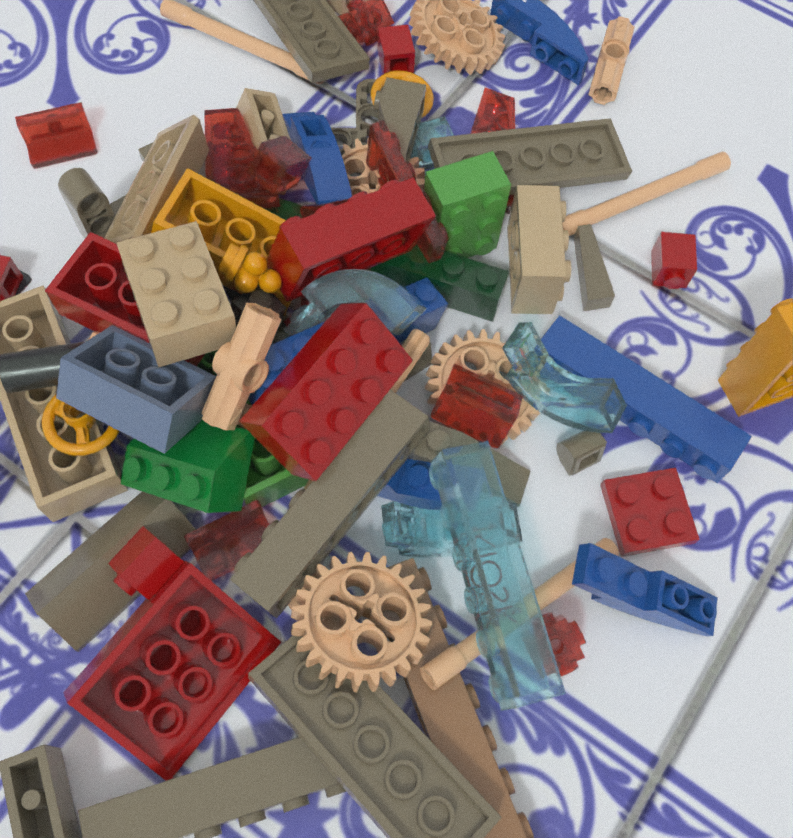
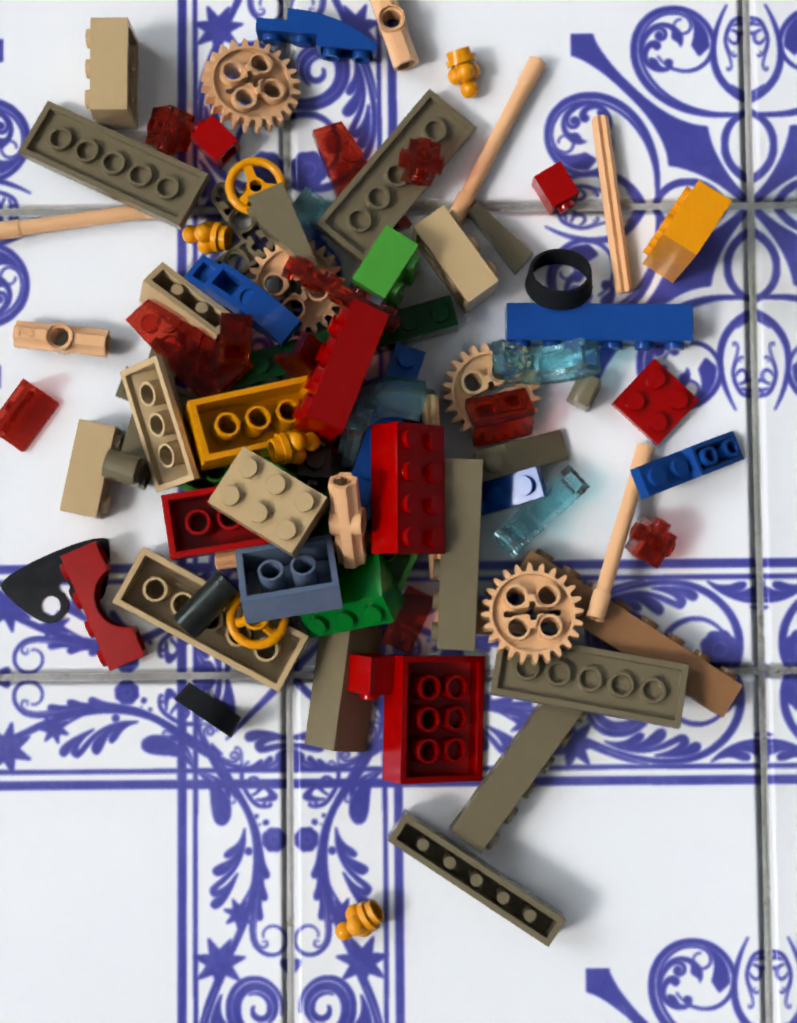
camera: 30 degrees left, 20 degrees up
(47, 220) = (85, 486): none -> tan brick
(139, 98) = (43, 337): none -> light nougat piece
(336, 109) = (210, 236): none -> light orange piece
(495, 577) = (591, 529): clear light blue brick -> none
(562, 150) = (420, 162): none -> clear red brick
(621, 342) = (559, 299): none -> black tyre
(651, 126) = (463, 71): none -> light orange piece
(718, 312) = (611, 204): none -> light nougat axle

